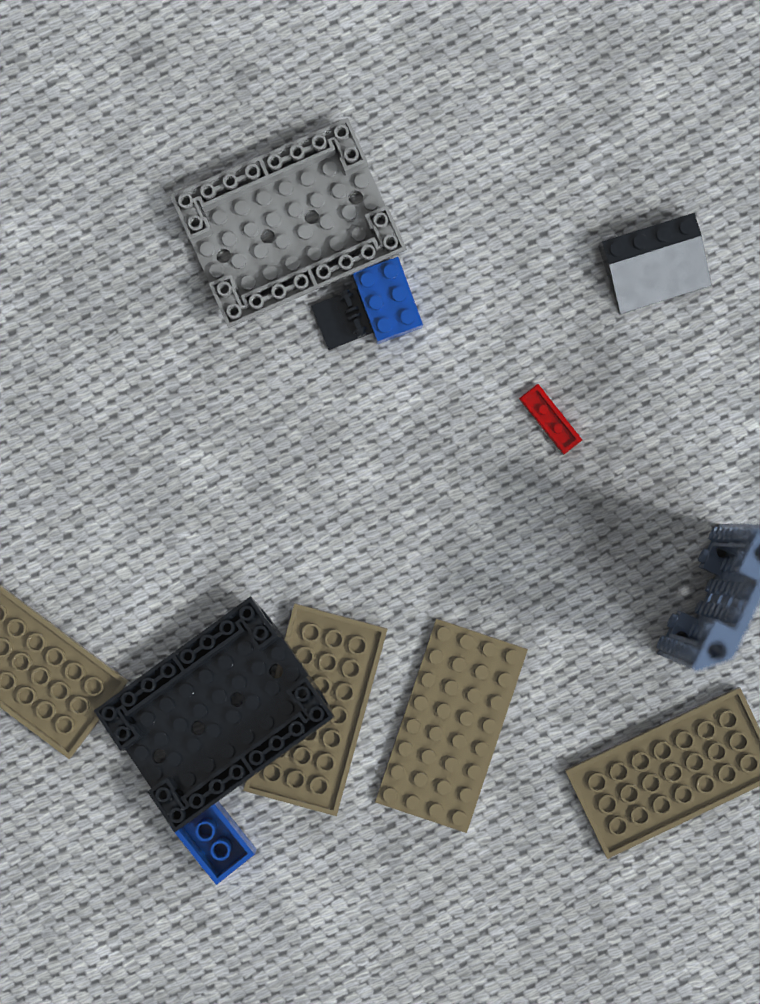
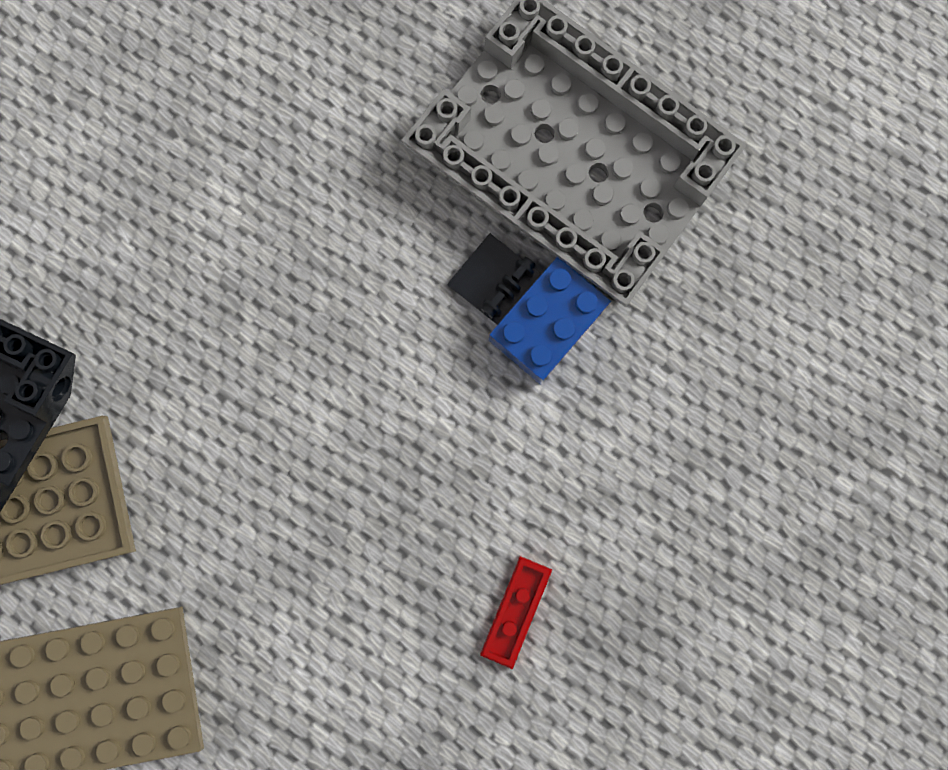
camera: 65 degrees right, 5 degrees down
(656, 263) = (794, 637): slope -> none

